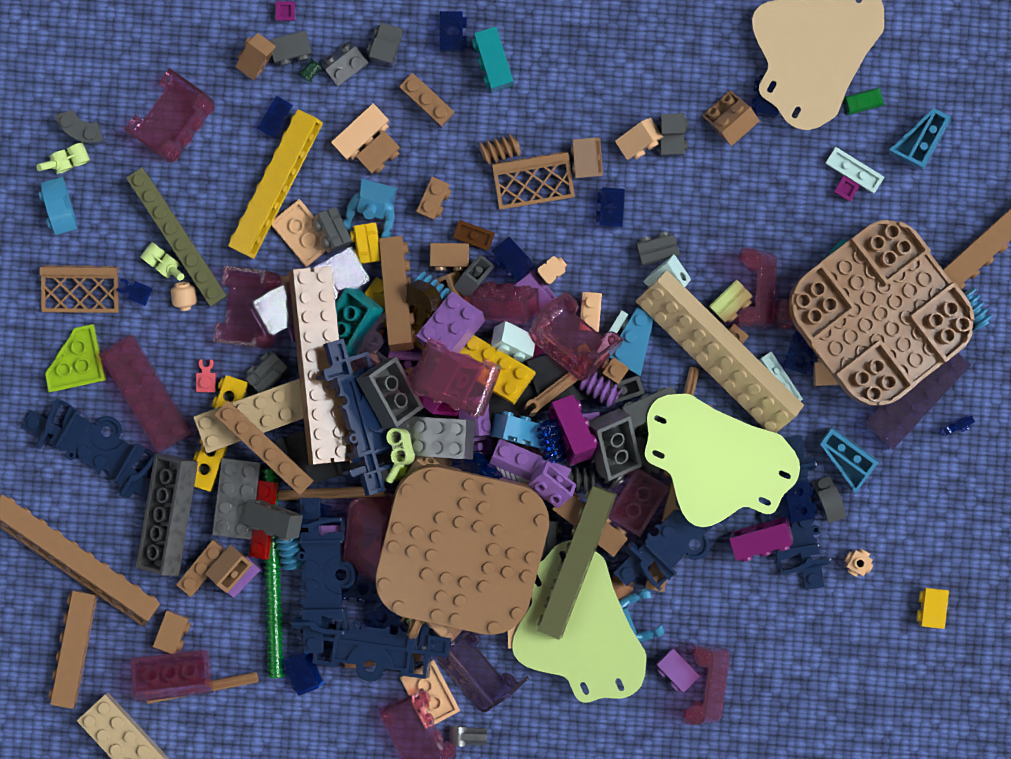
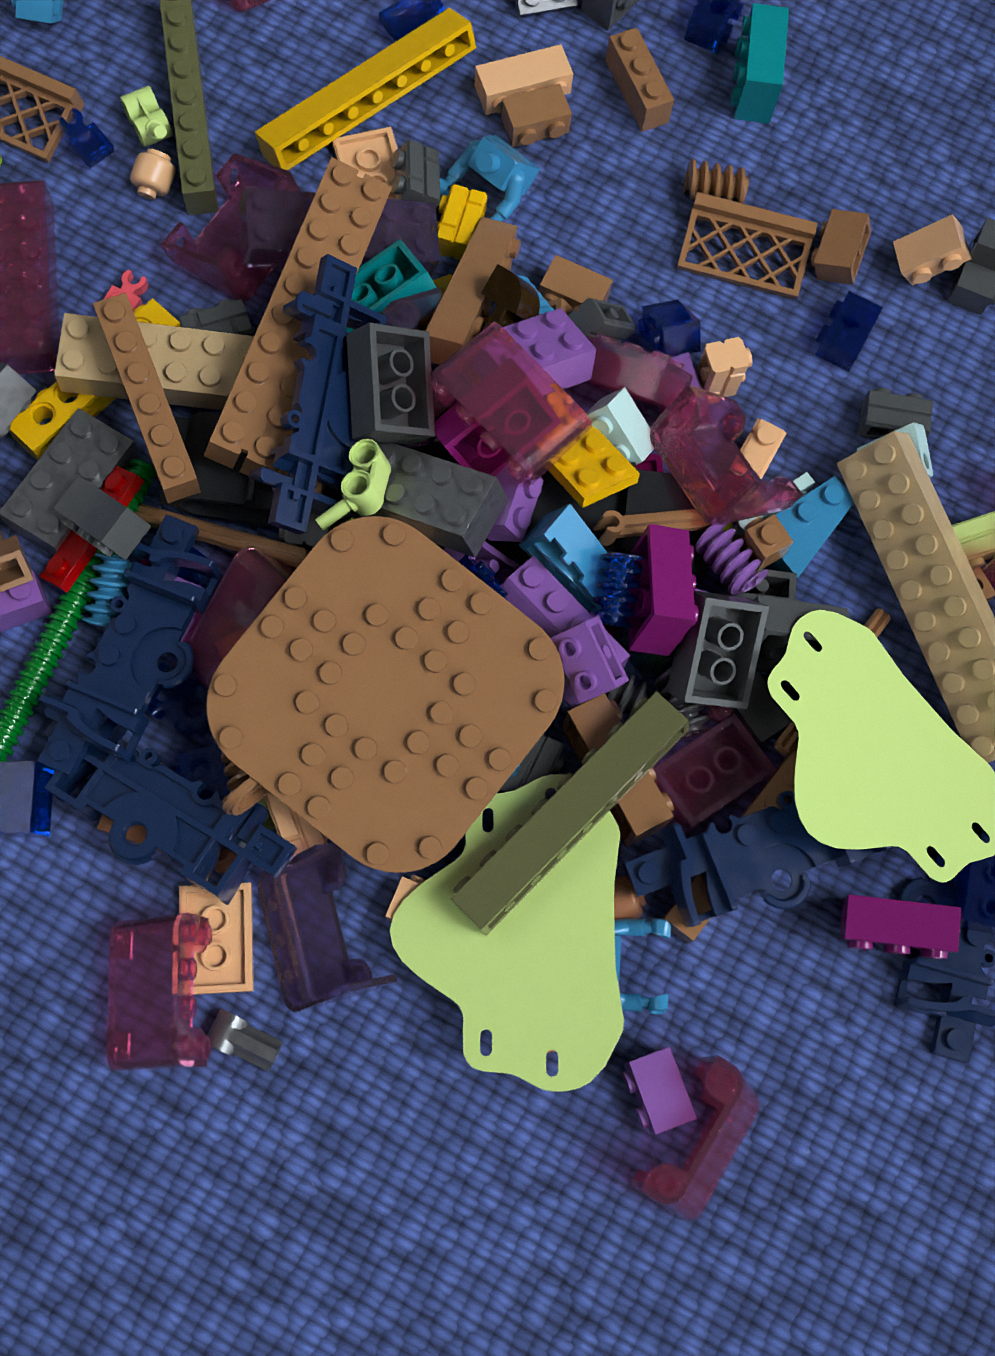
camera: 20 degrees right, 15 degrees down
(433, 198) = (587, 205): medium nougat brick -> none
(473, 235) = (628, 283): reddish brown plate -> none

